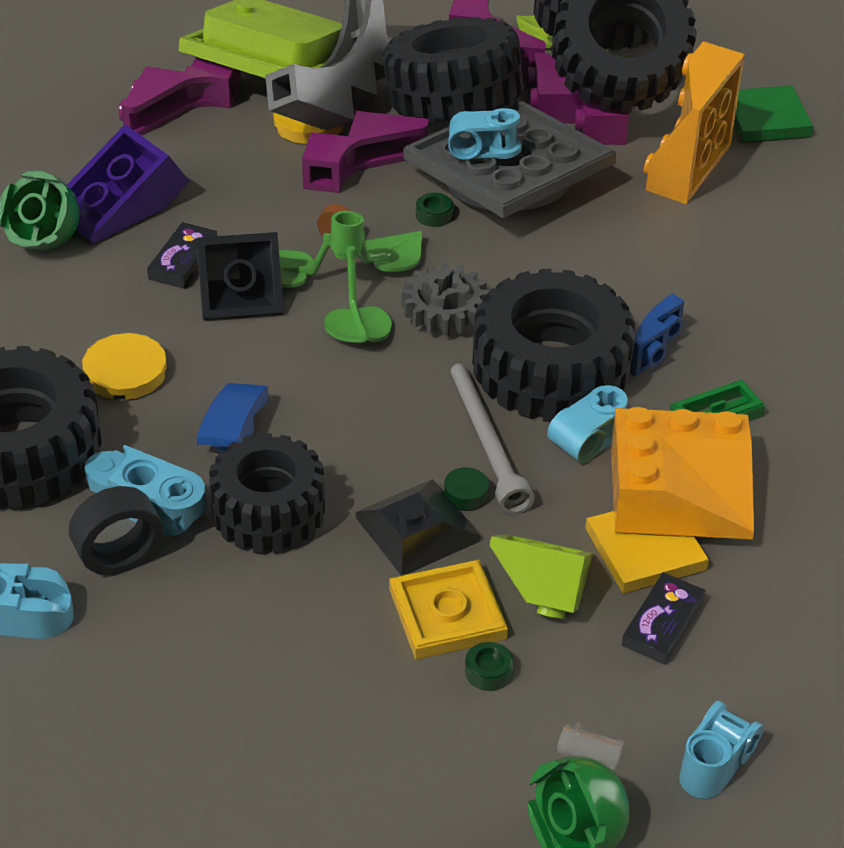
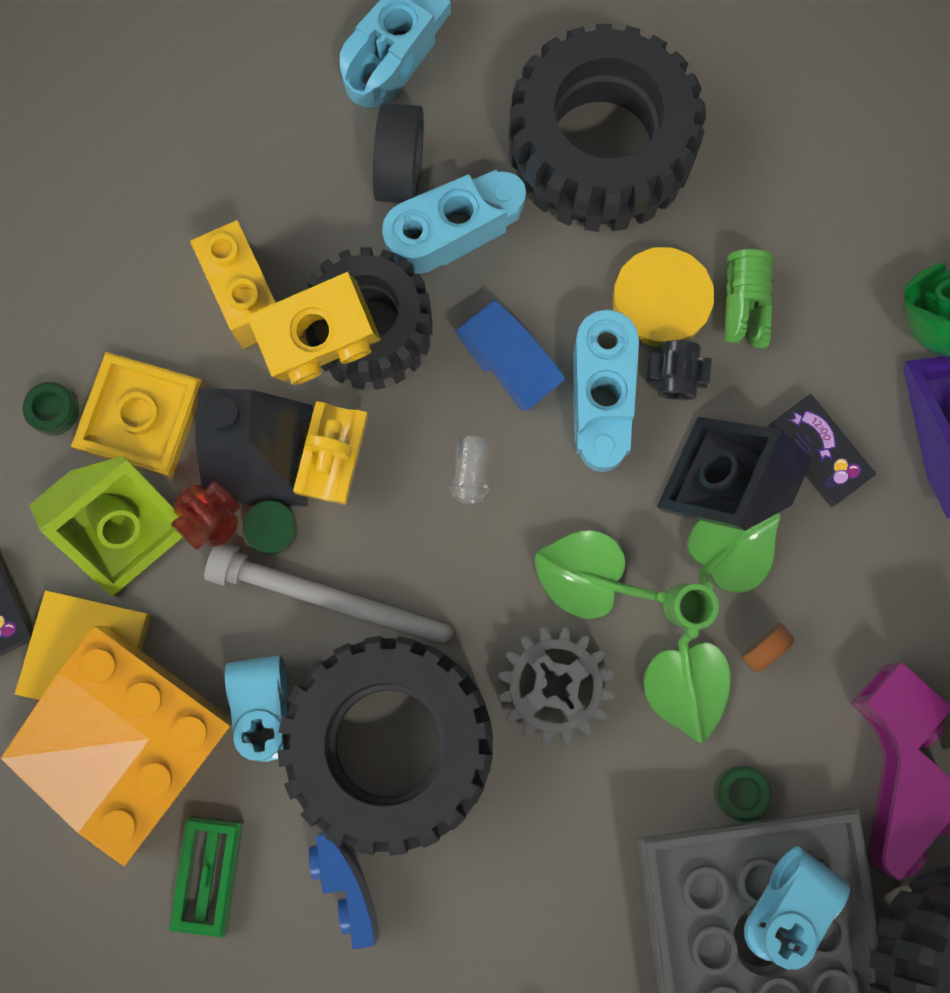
camera: 125 degrees right, 35 degrees up
(95, 320) = (749, 297): none -> bright green hinge
(180, 325) = (679, 370): none -> black gear
(221, 356) = (601, 431): none -> medium azure piece
(296, 583) = (233, 278): none -> yellow brick
(308, 468) = (283, 328): none -> yellow brick
(337, 401) = (470, 471): none -> clear pin
(384, 465) = (330, 453): none -> yellow hips
(489, 507) = (205, 515): none -> clear red gear

